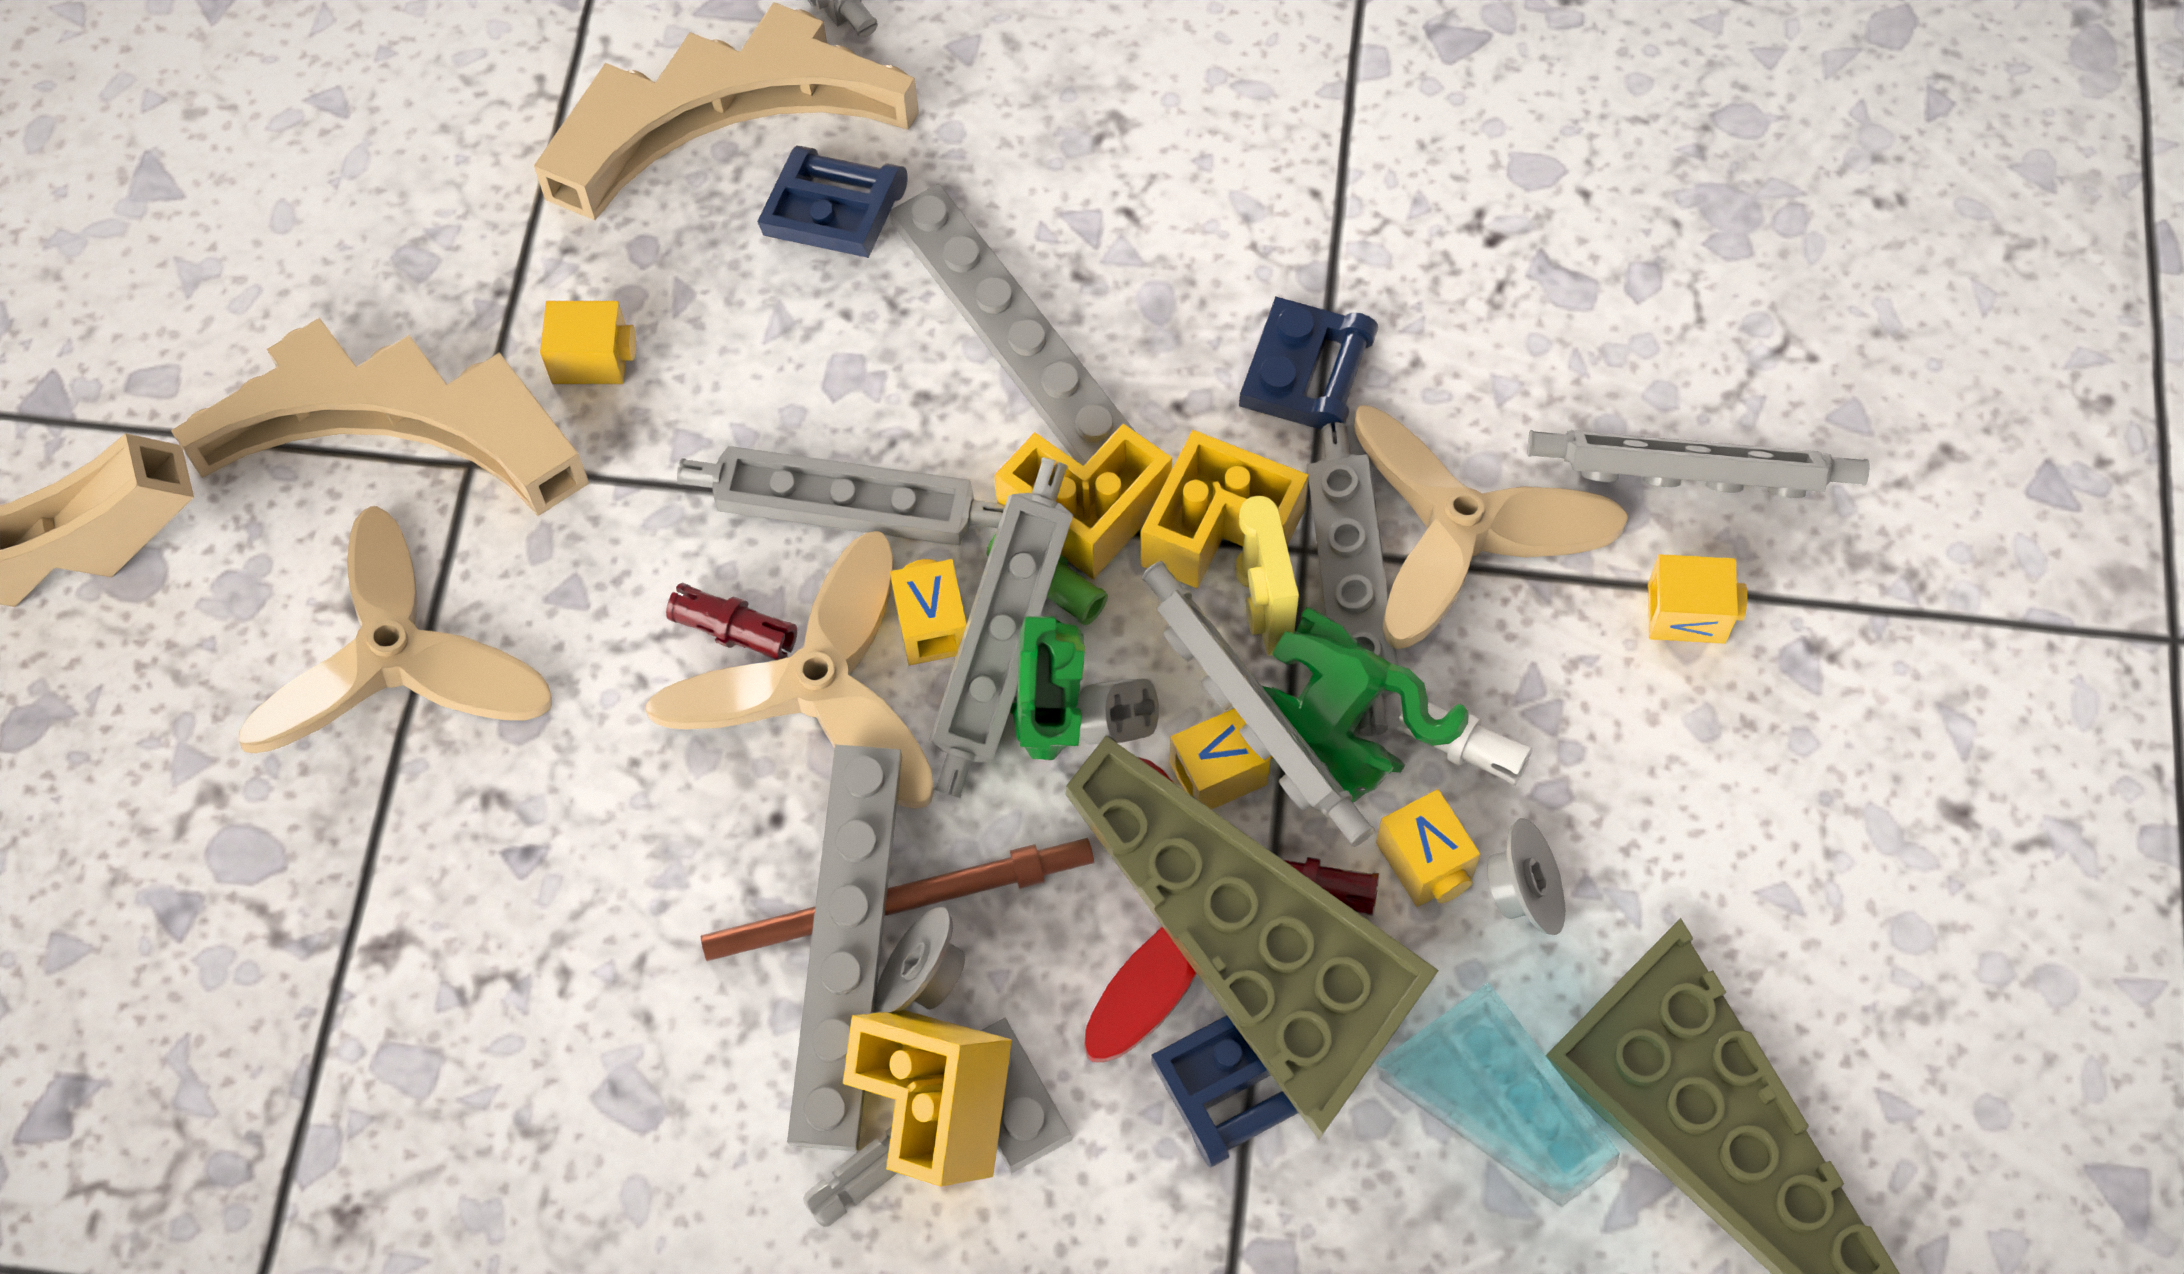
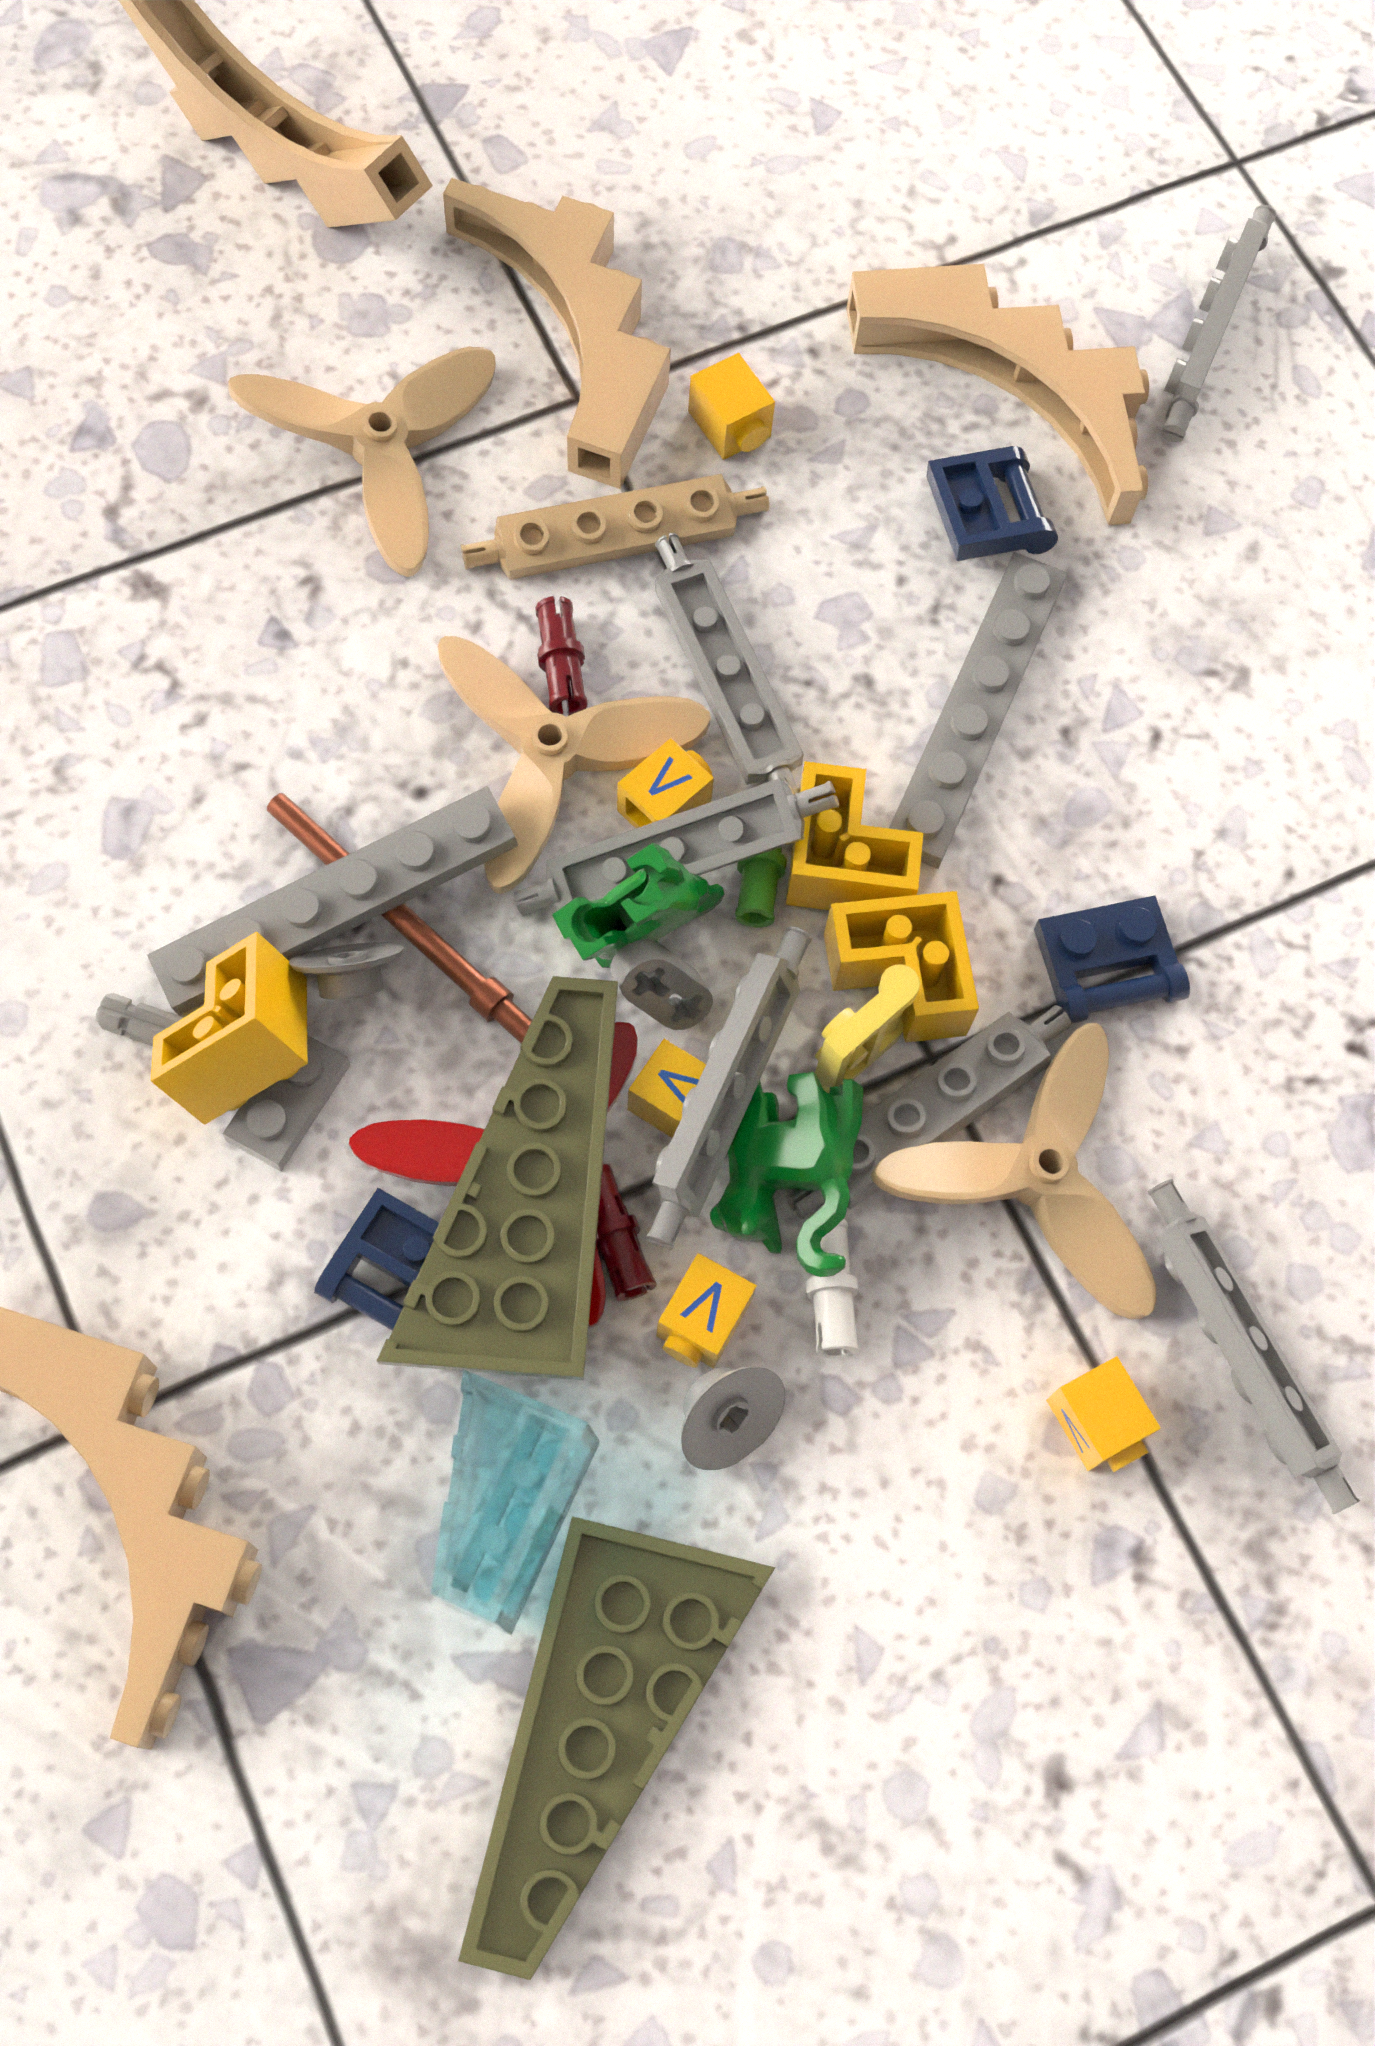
camera: 50 degrees right, 5 degrees up
(629, 509) = (613, 526): none -> tan plate

